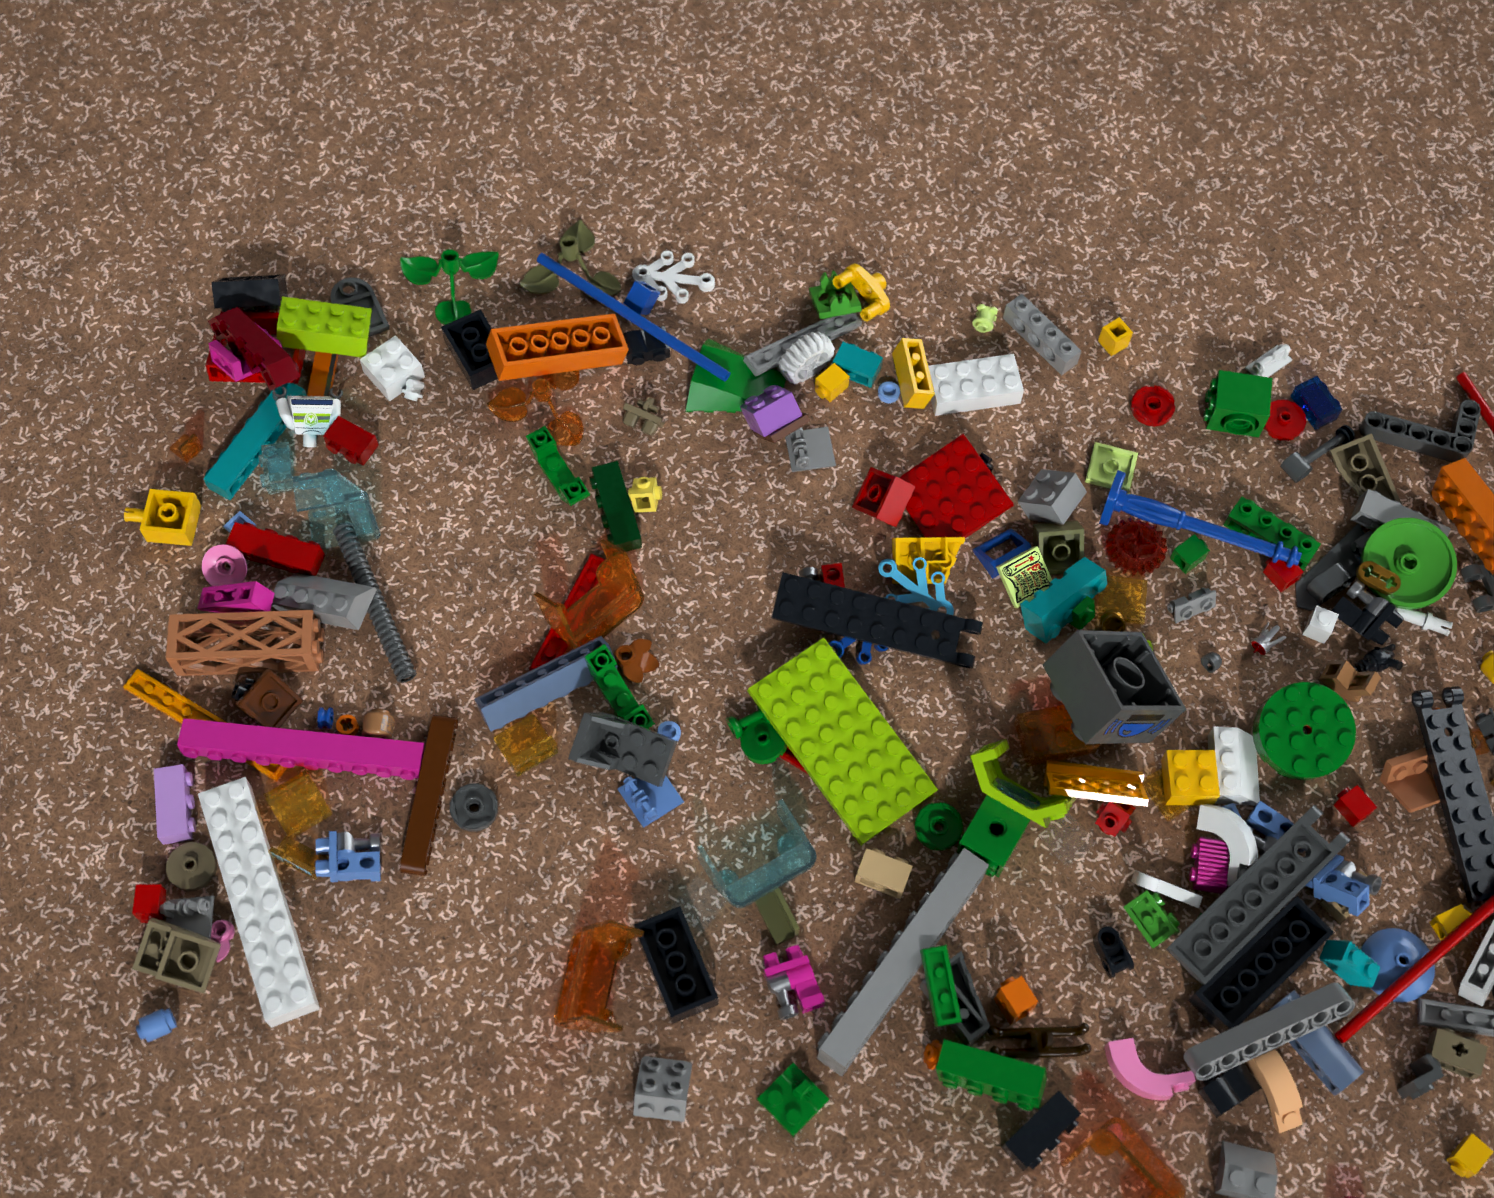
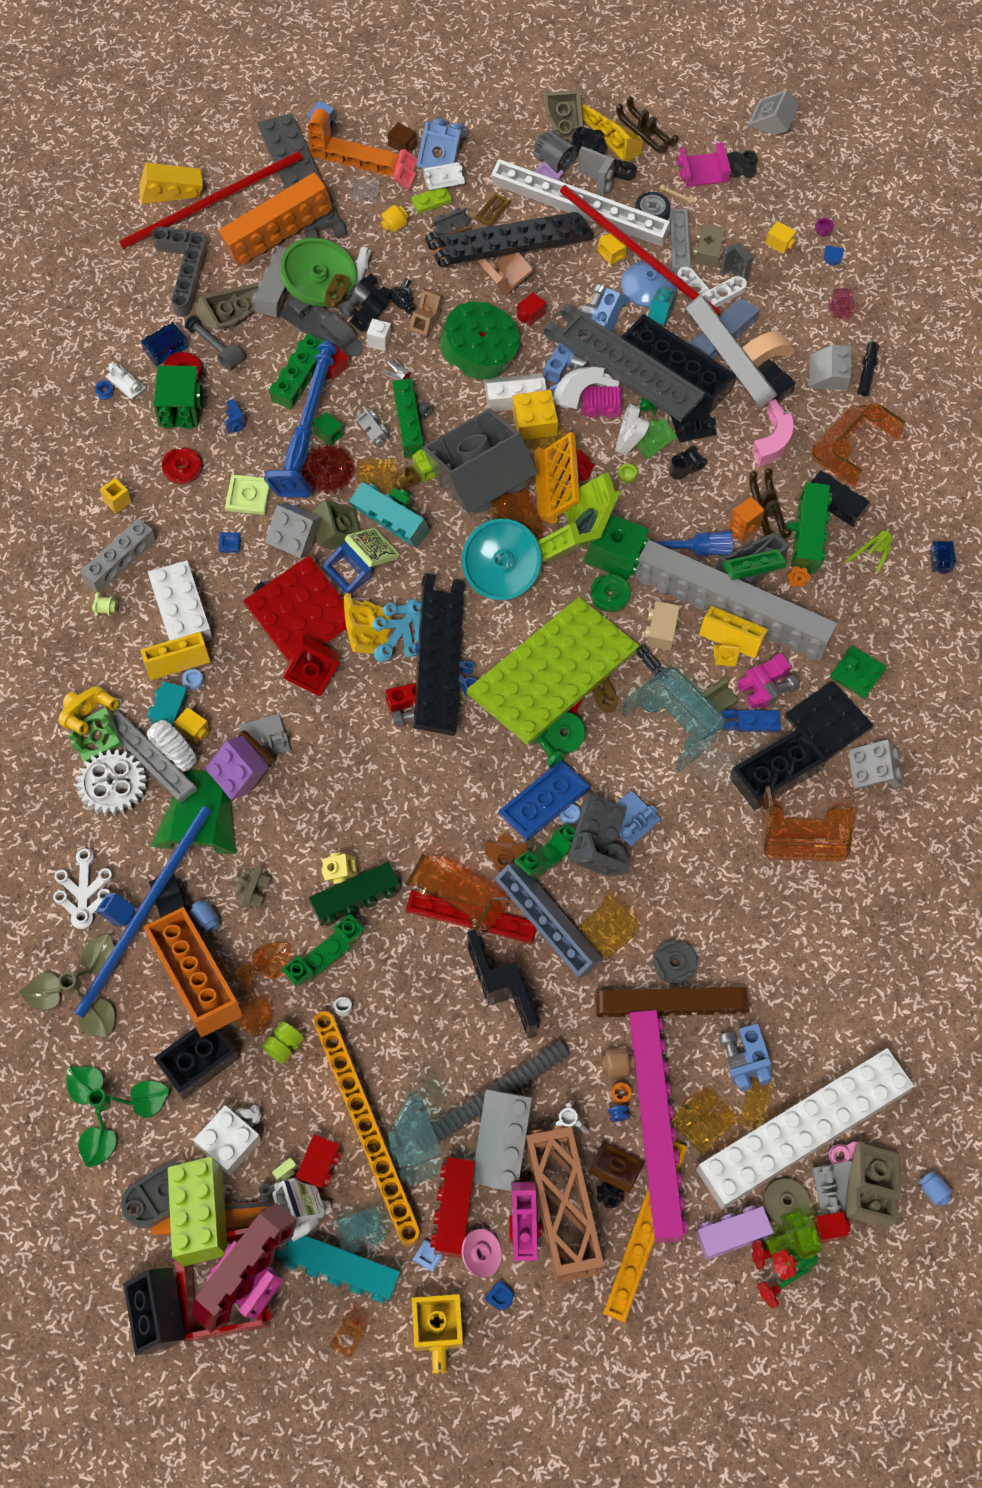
camera: 100 degrees left, 0 degrees up
(123, 867) = (784, 1265): none -> red plant
(145, 860) = (799, 1236): none -> clear neon green brick
(182, 581) = (500, 1296): none -> blue tile
(322, 656) = (569, 1117): none -> white plant
(350, 412) = (285, 1171): none -> yellowish green plate
(385, 480) = (369, 1137): none -> light orange beam
(475, 423) = (283, 1042): none -> lime wheel
(483, 631) = (503, 983): none -> black bracket
(505, 482) = (341, 1004): none -> white hinge
(621, 374) = (204, 916): none -> medium blue brick
(688, 708) = (544, 800): none -> blue tile
(733, 1047) = (829, 719): none -> black plate
(747, 958) = (753, 720): none -> blue hinge
(759, 308) = (110, 765): none -> white gear
(807, 801) = (609, 693): none -> pearl gold beam
(837, 940) = (726, 655): none -> yellow bracket
(841, 856) = (649, 659): none -> black axle
(862, 953) = (733, 631): none -> yellow brick
(972, 1173) = (880, 543): none -> lime plant
(989, 705) = (502, 559): none -> teal dish
(991, 945) = (704, 544): none -> blue piece
(1051, 442) = (229, 542): none -> blue tile
(1105, 880) = (627, 473): none -> lime tile
(1169, 977) = (695, 426): none -> black hinge
(1199, 638) = (407, 417): none -> green brick
(1214, 463) = (235, 417): none -> blue bracket
(1253, 345) = (99, 388): none -> blue bush
(1377, 1034) = (708, 293): none -> white beam

